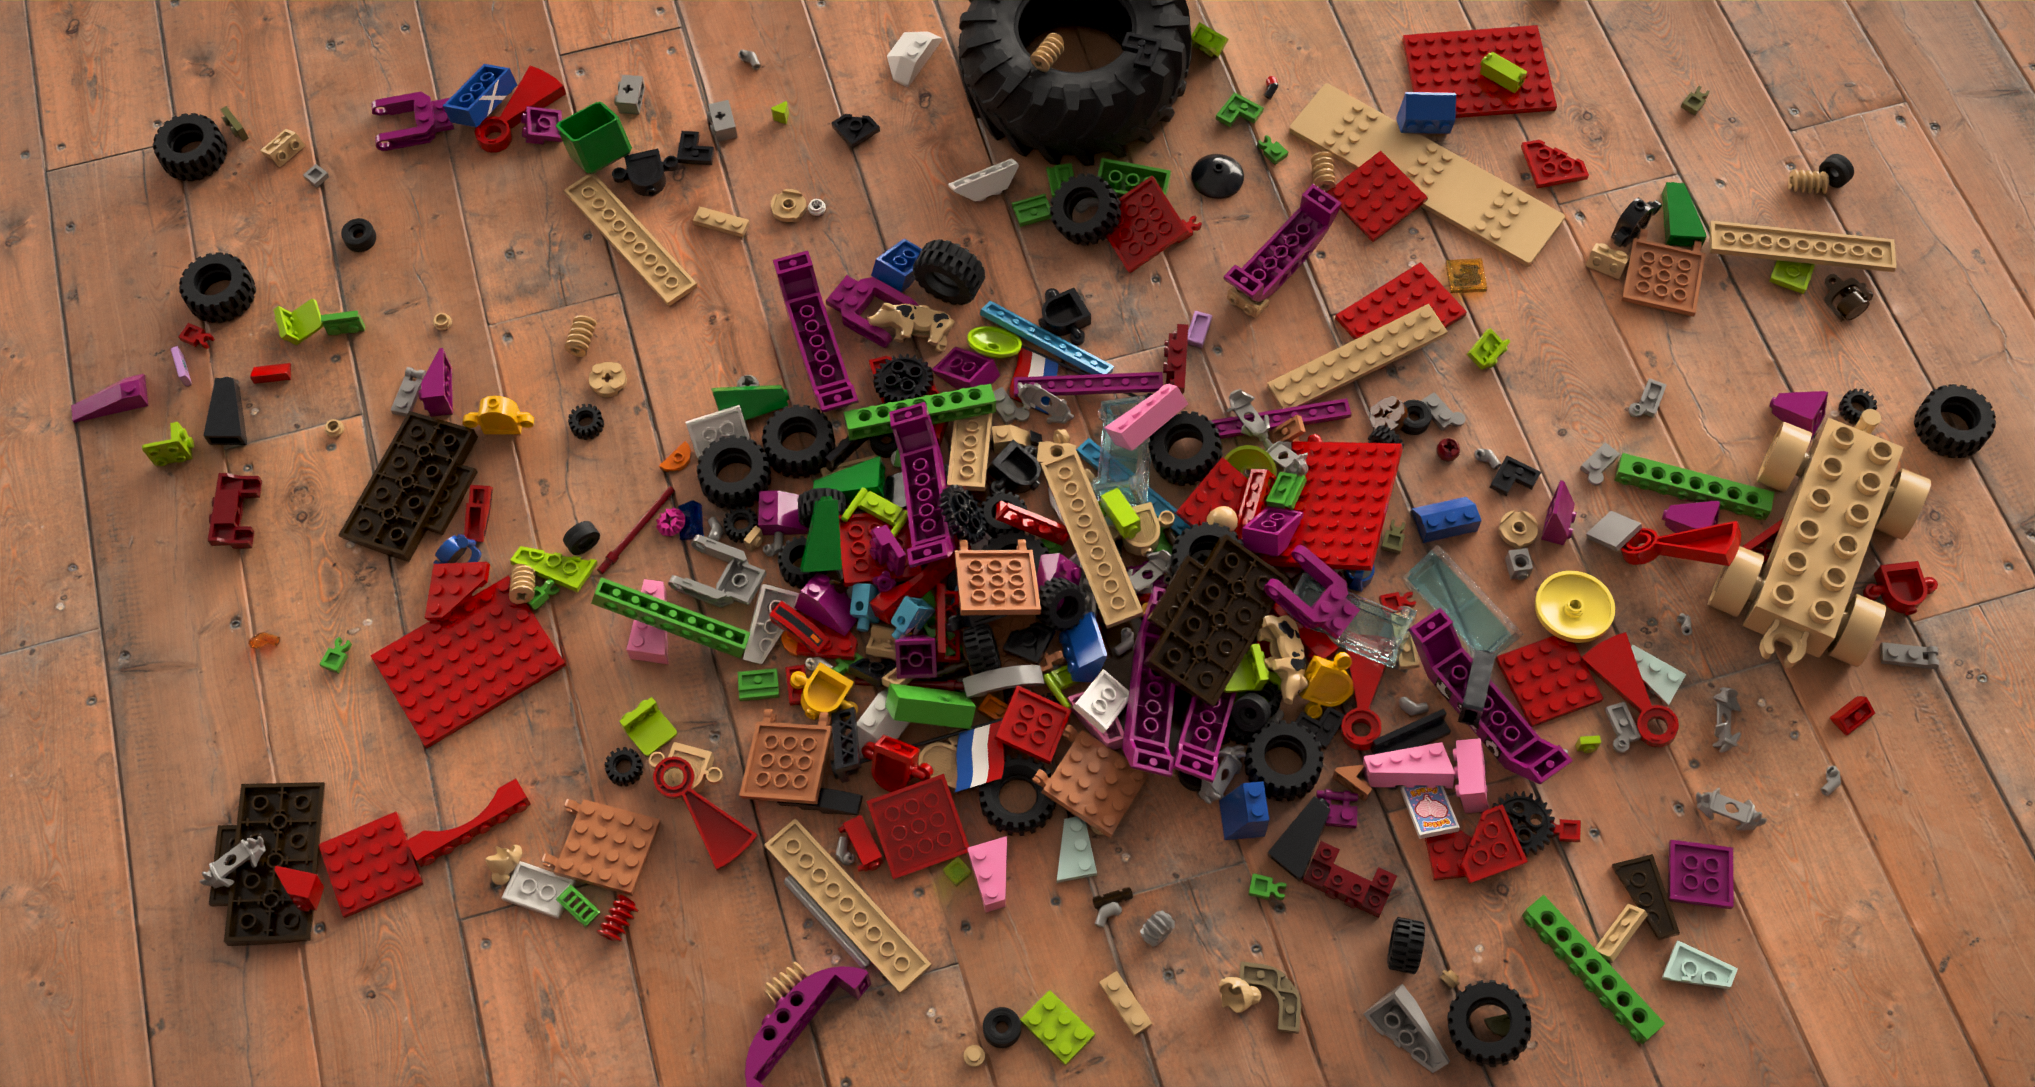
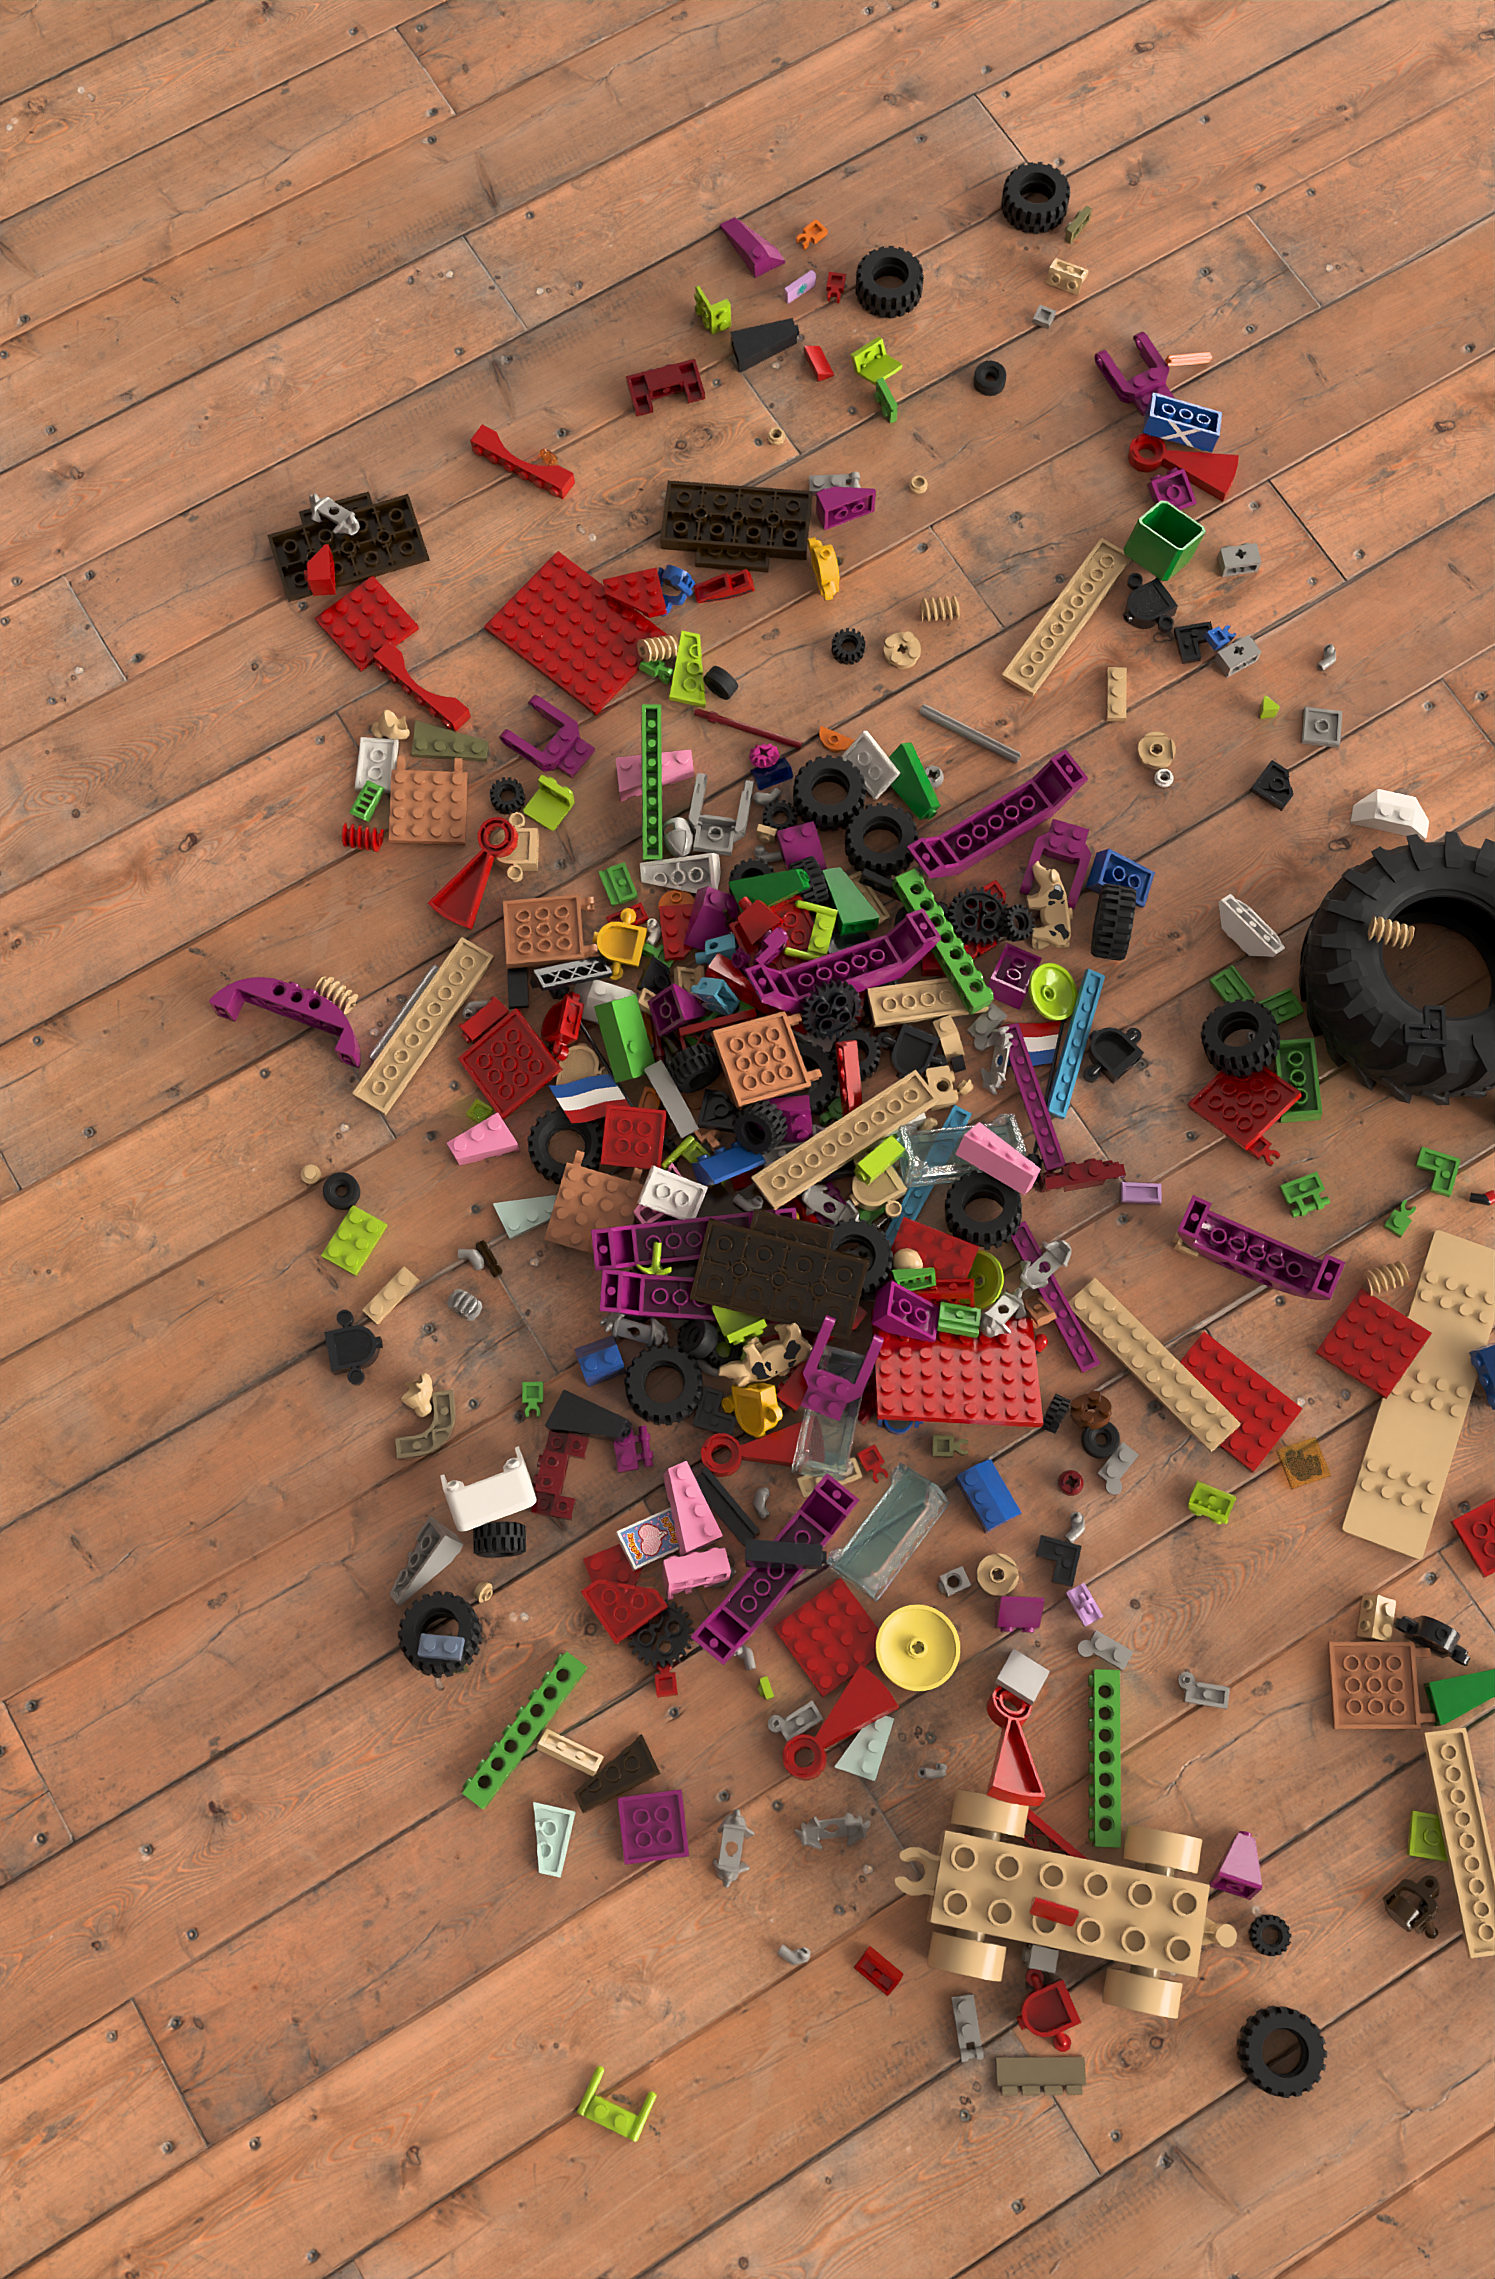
camera: 75 degrees right, 10 degrees up
(127, 341) = (813, 232): none -> orange plate
(221, 691) = (551, 478): none -> red arch
(336, 658) = (547, 523): bright green plate -> none
(416, 76) = (1188, 359): none -> axle
(541, 816) = (441, 743): none -> olive wing
(596, 698) = (563, 752): none -> magenta plate
(701, 127) = (1219, 637): none -> blue plate
(714, 346) = (970, 733): none -> light grey axle
(735, 612) = (680, 839): none -> light grey helmet
(799, 628) = (677, 899): red slope -> none
(812, 81) = (1321, 727): none -> light grey tile
(853, 552) = (757, 919): none -> red torso
(922, 349) = (1007, 923): none -> black tyre
(1174, 1052) = (351, 1348): none -> black piece
(1175, 730) = (656, 1268): none -> lime plant
(1215, 182) = (1339, 1178): black dish -> none
(1228, 209) = (1303, 1188): none -> bright green plate
(1240, 514) = (908, 1277): none -> bright green slope
(1348, 778) = (665, 1453): nougat slope -> none
(1370, 941) = (490, 1497): none -> white windscreen
(1510, 1015) = (441, 1647): none -> sand blue plate
(1559, 466) = (1084, 1604): none -> lavender hips
(1691, 516) = (1059, 1764): magenta slope -> none
(1841, 532) = (1053, 1911): none -> red slope
(1865, 576) = (1040, 1957): none -> light grey brick
(1954, 609) = (1041, 2071): none -> dark tan windscreen
(1959, 974) = (612, 2115): none -> lime plate

